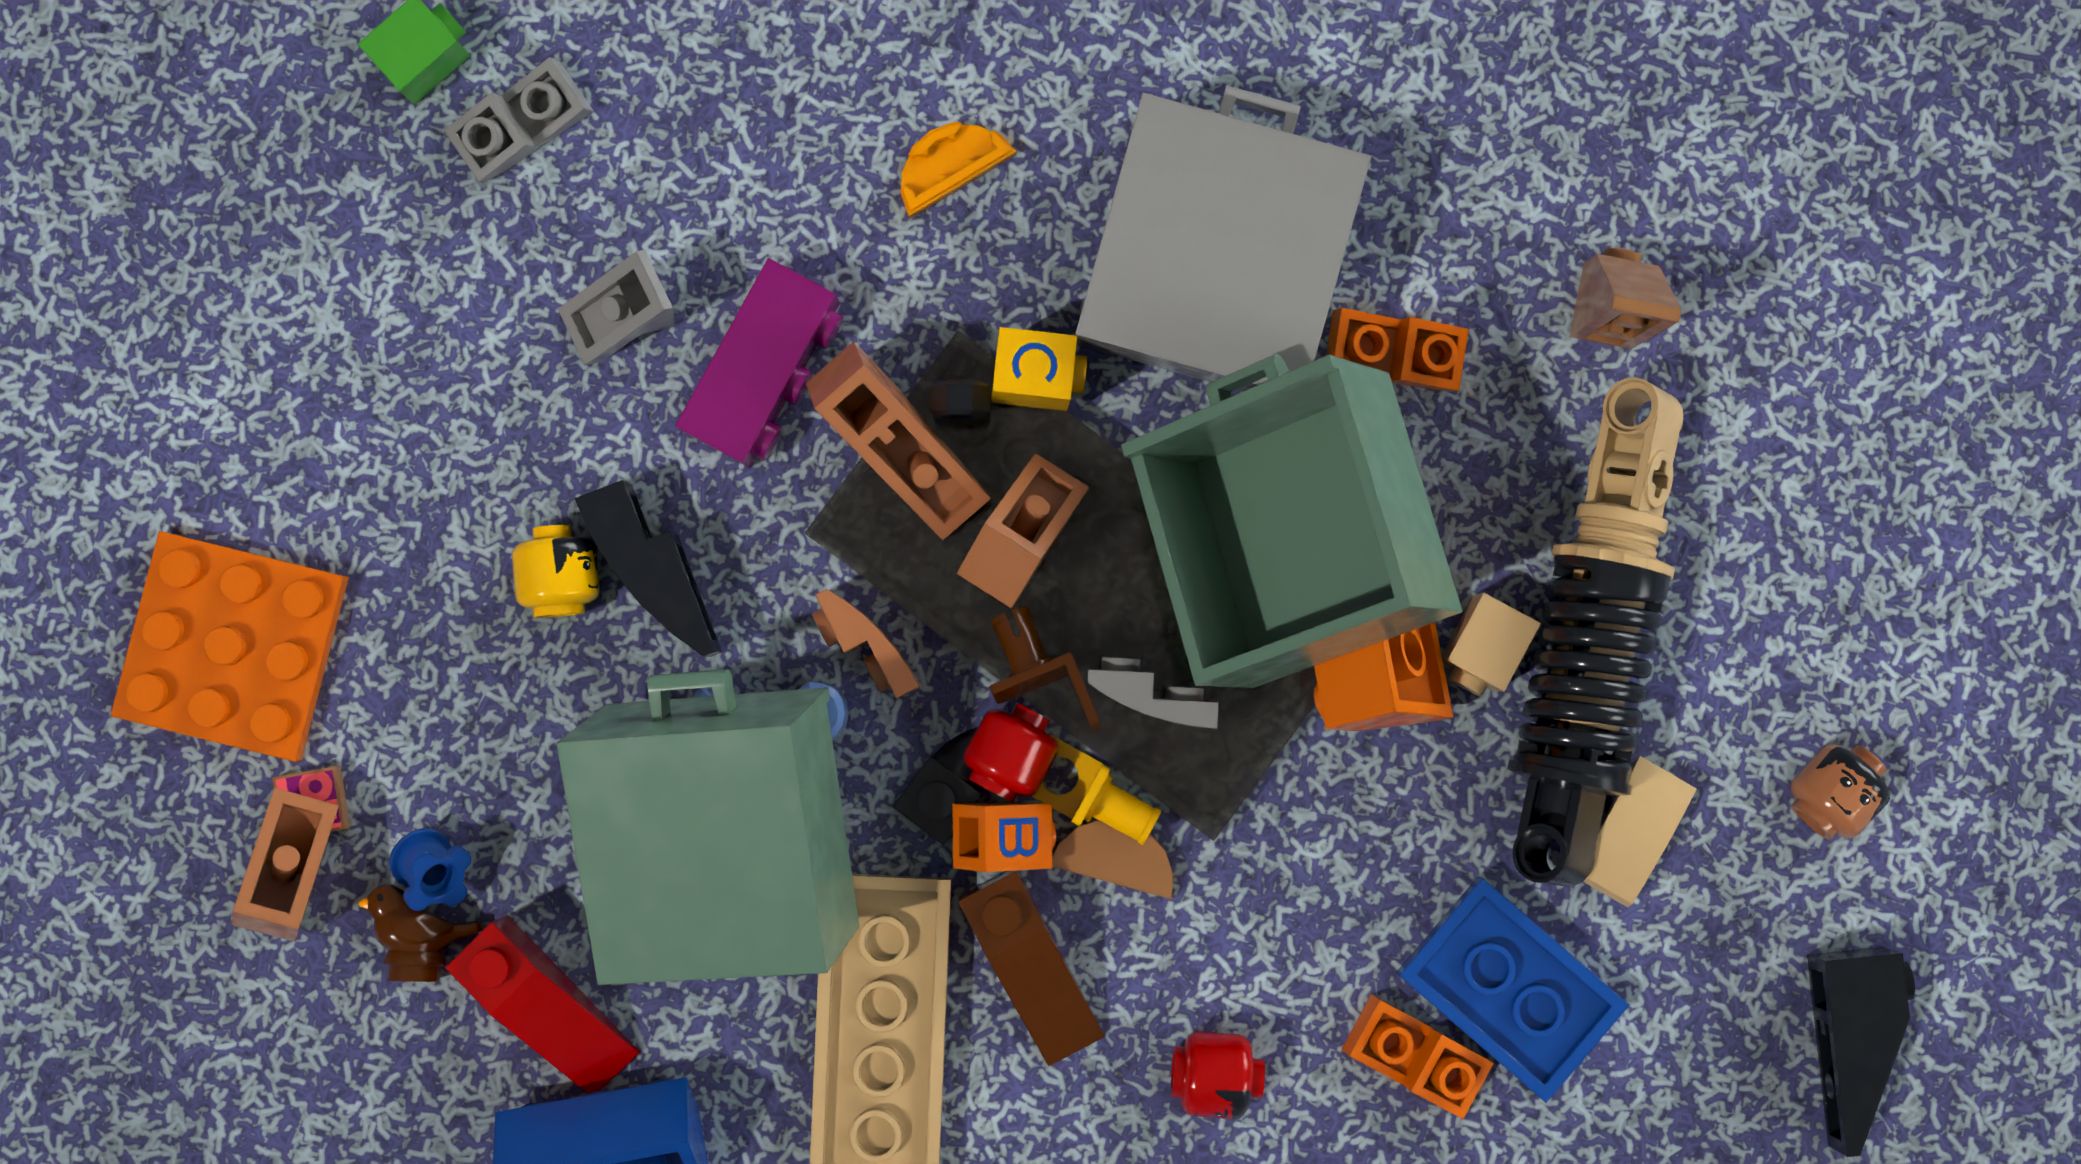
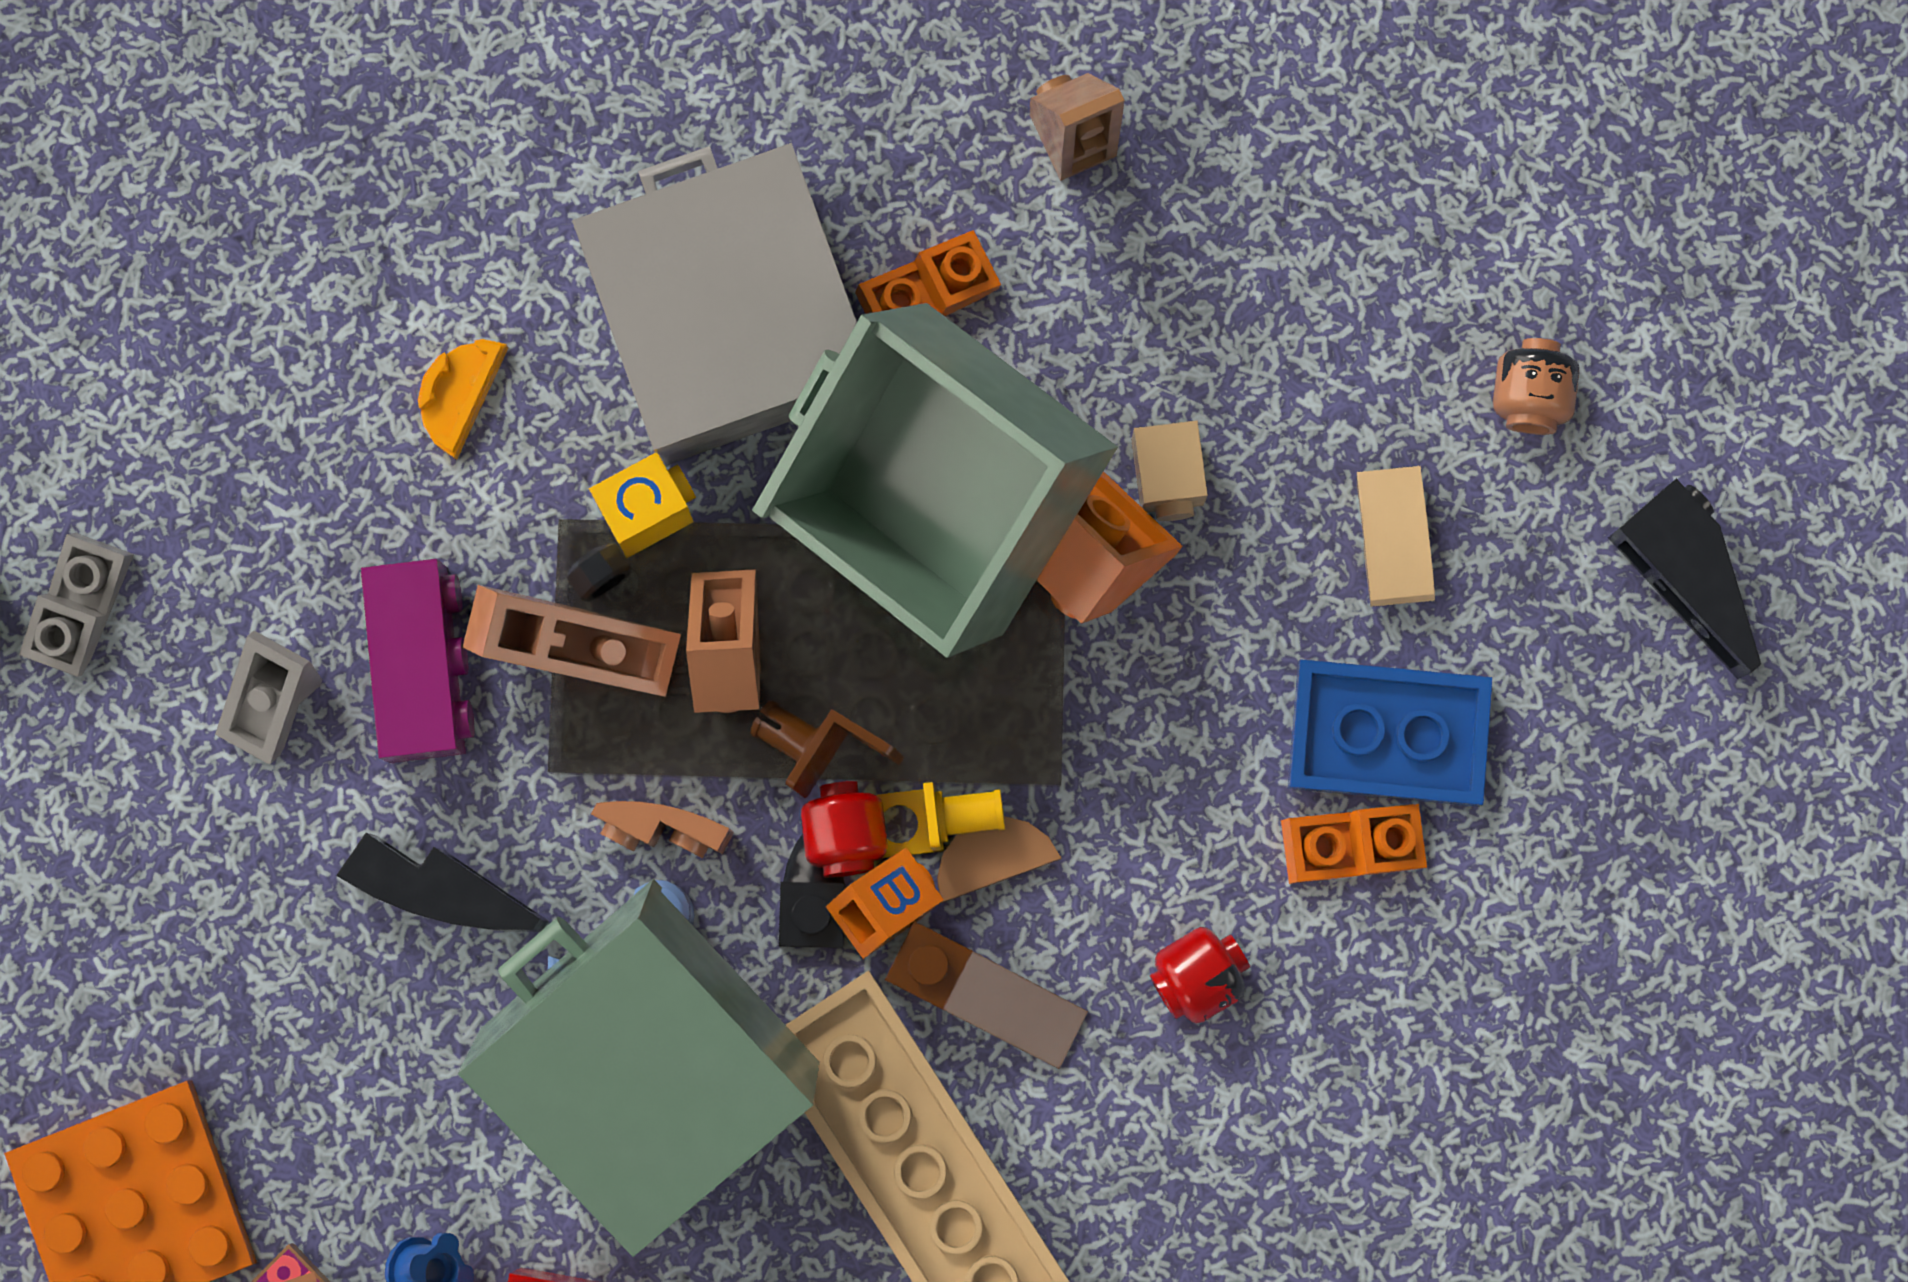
camera: 30 degrees left, 5 degrees down
(555, 572) = (363, 951): yellow head -> none
(1125, 684) = (904, 706): light grey slope -> none
(1605, 594) = (1233, 366): black piece -> none

